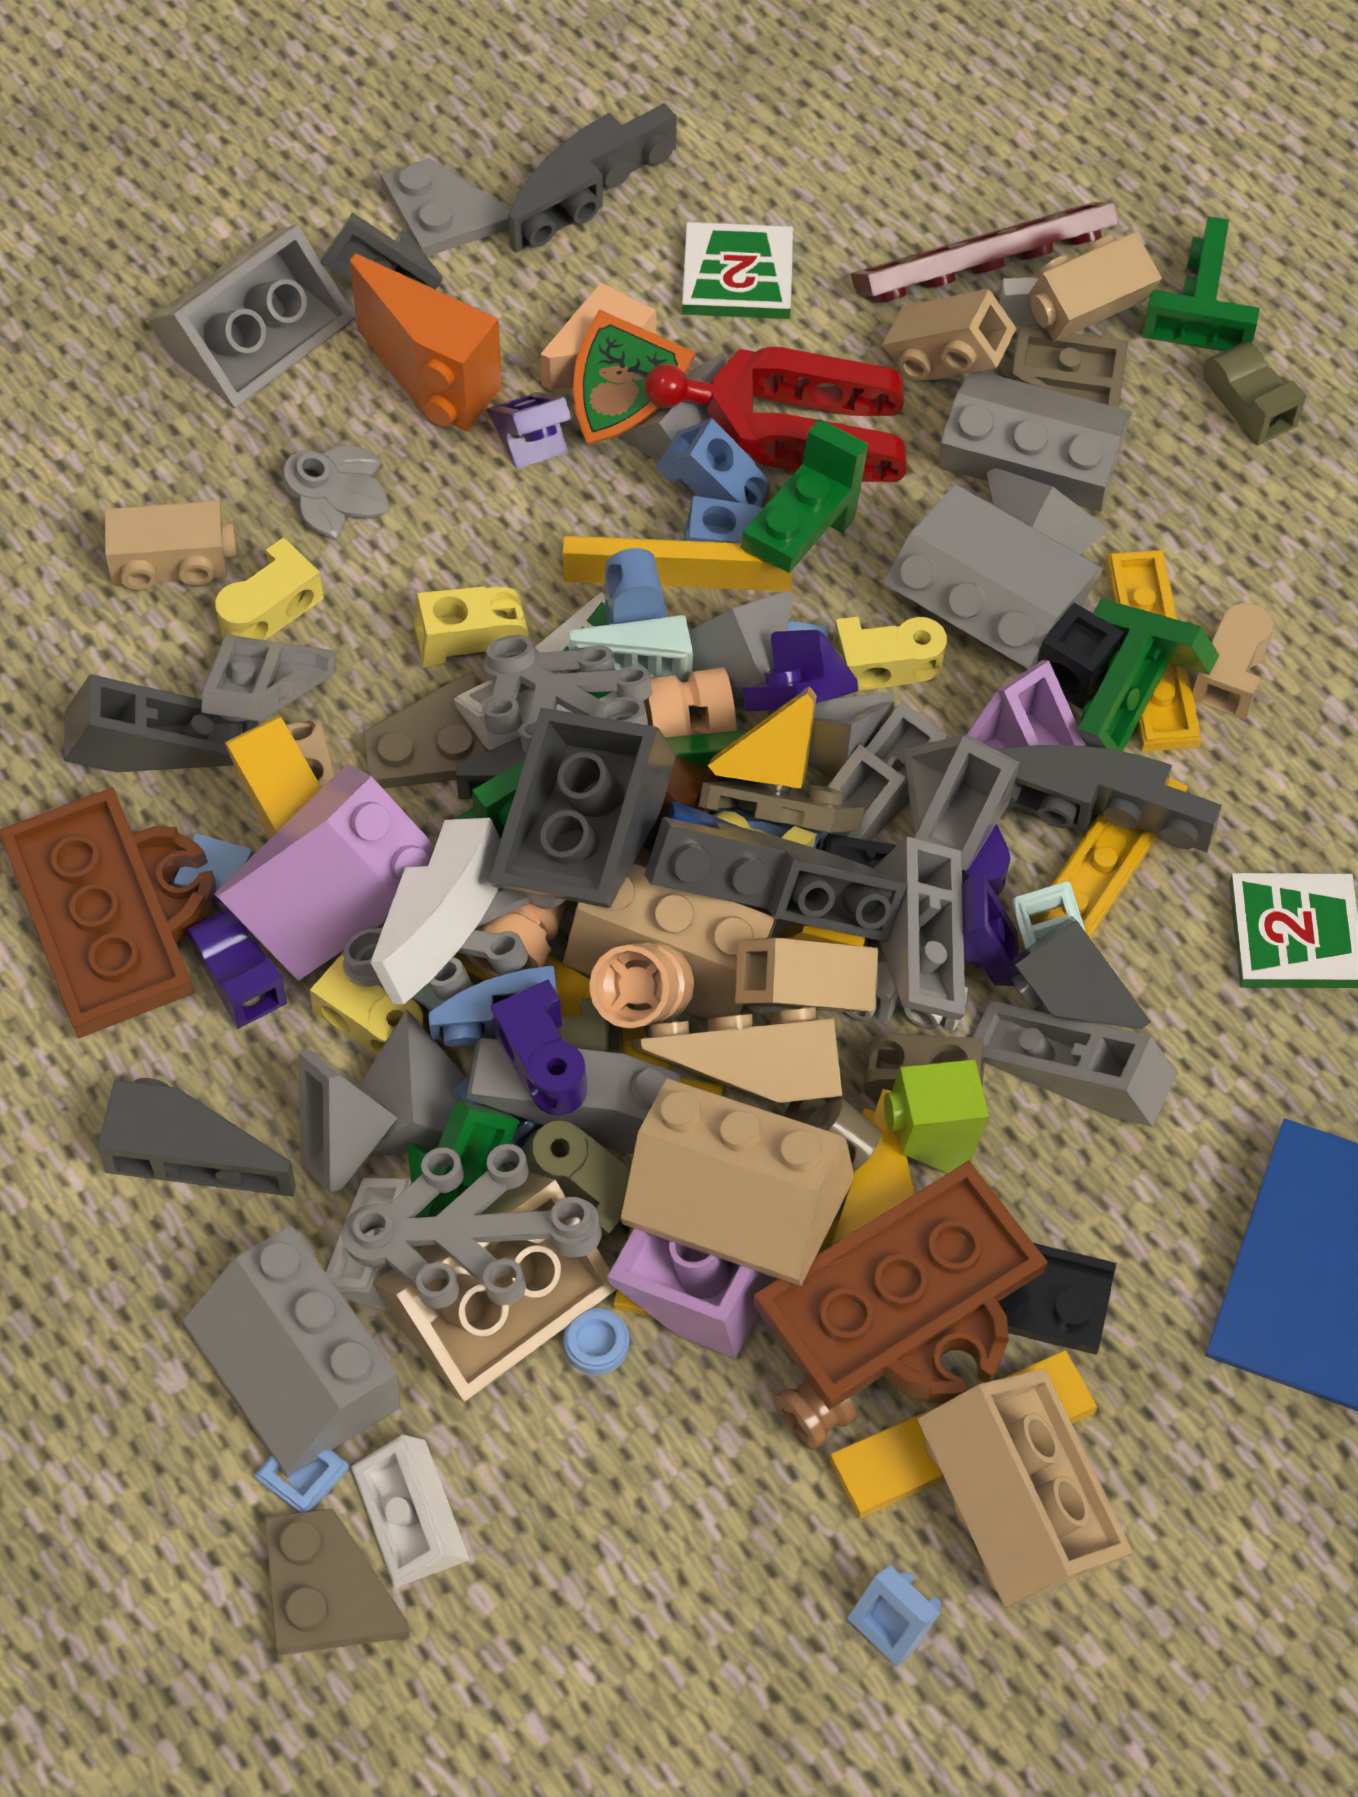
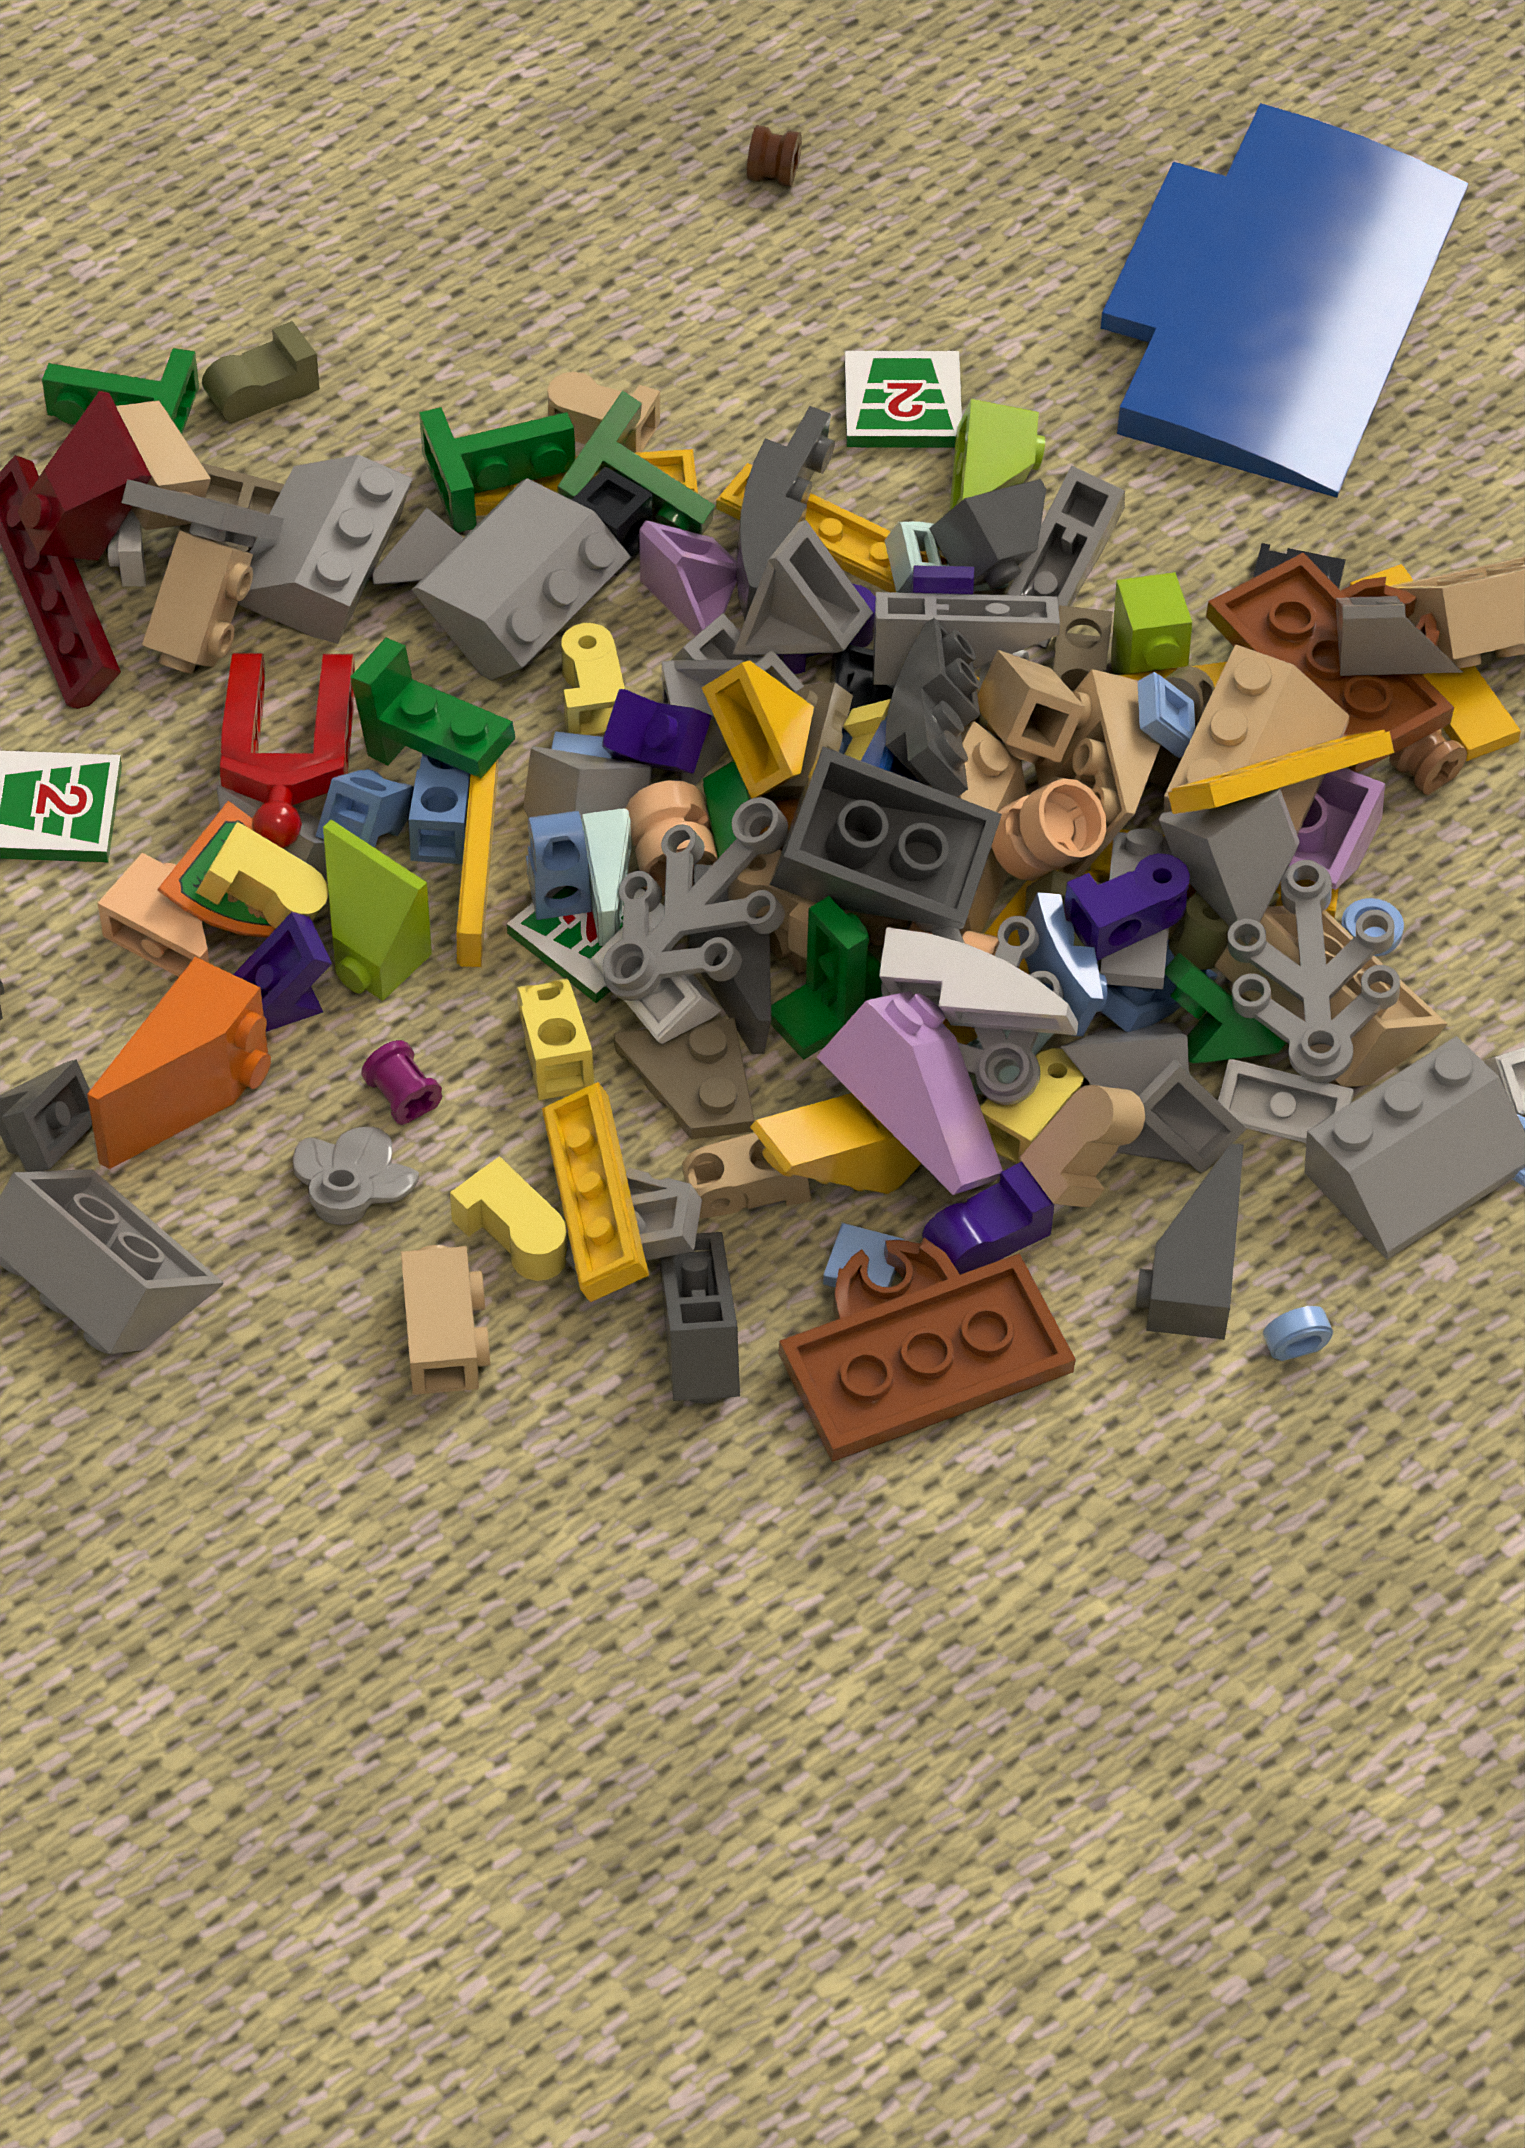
camera: 90 degrees left, 5 degrees down
(86, 1225) = (1298, 1333): none -> light blue tile
(278, 1018) = (1082, 1142): none -> tan leg
(283, 646) = (594, 1192): none -> yellow tile
(423, 515) = (401, 1081): none -> magenta bush
(591, 474) = (375, 914): none -> lime slope
(594, 1141) = (1235, 853): none -> light grey slope
(612, 382) = (264, 877): none -> light yellow leg
(682, 1179) = (1280, 771): none -> yellow tile
(788, 1088) = (1165, 713): none -> light blue tile
(916, 1317) = (1383, 641): none -> light grey slope
(1020, 318) = (207, 516): none -> light grey wing
(1051, 225) = (81, 490): none -> dark red slope
(1137, 531) = (491, 459): none -> green bracket
(1199, 995) = (994, 449): none -> lime slope

